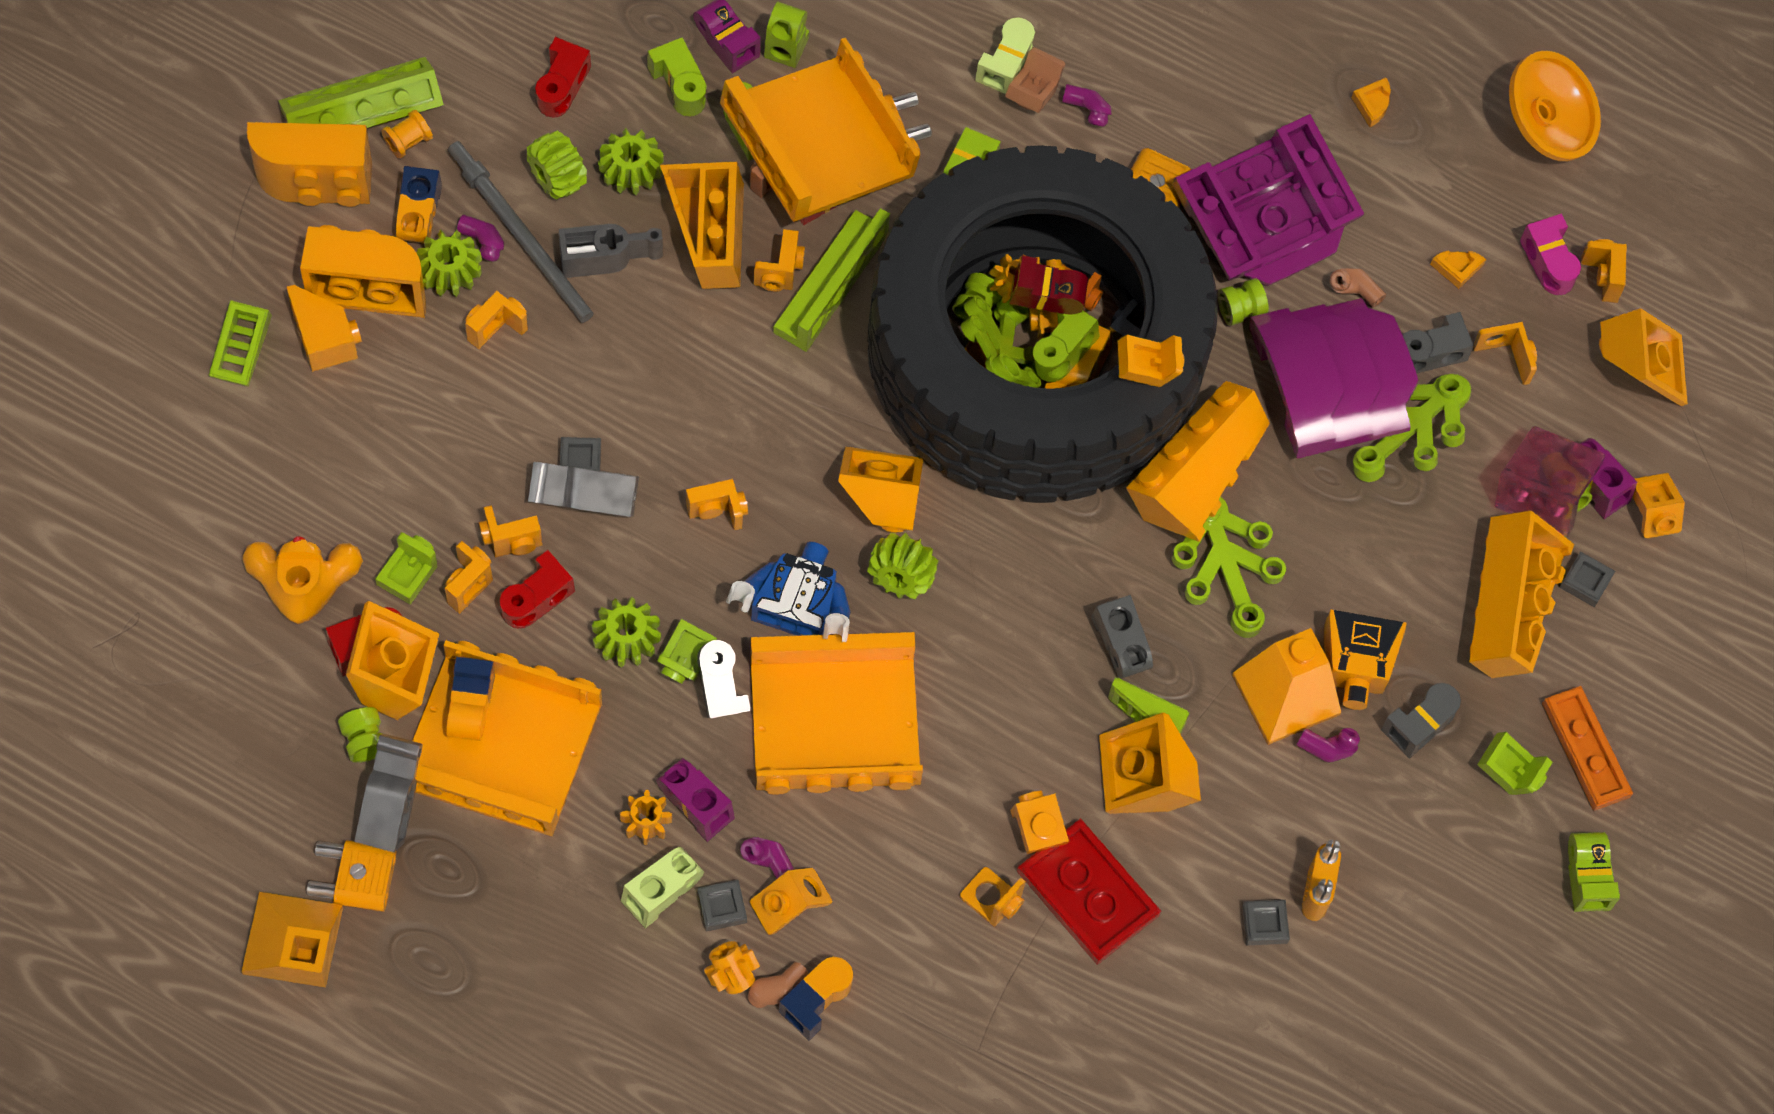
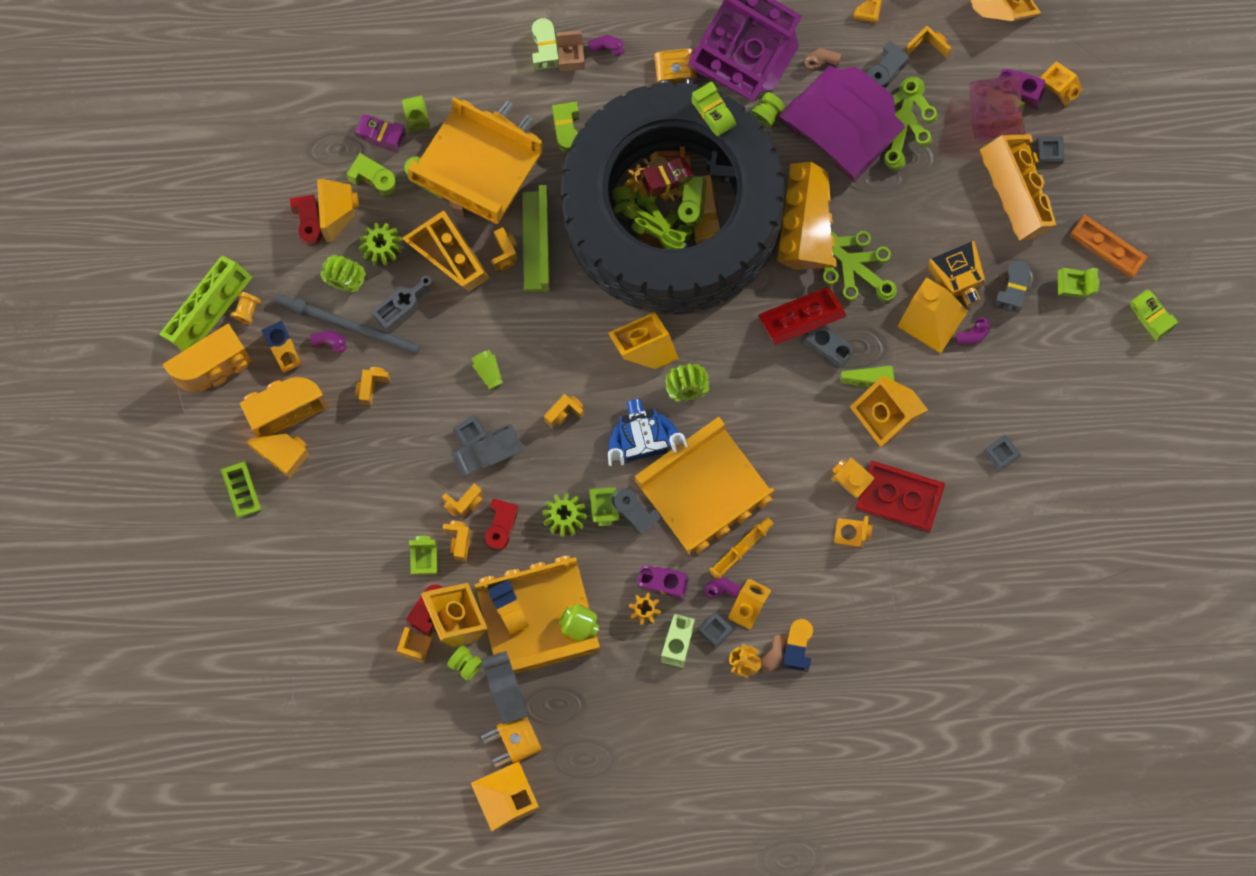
camera: 20 degrees left, 10 degrees up
(299, 577) = (370, 599): light orange head -> none
(313, 670) = (414, 645): none -> light orange panel
(454, 275) = (325, 358): lime gear -> none
(546, 776) = (578, 623): none -> lime head
(603, 81) = (336, 207): none -> light orange slope
(657, 392) = (487, 368): none -> lime cone
(829, 822) = (741, 548): none -> light orange piece
(1112, 576) = (802, 315): none -> red tile
(1149, 360) = (755, 189): light orange bracket -> none
(1163, 229) = (713, 109): none -> lime leg
(1321, 881) = (1018, 413): light orange piece -> none

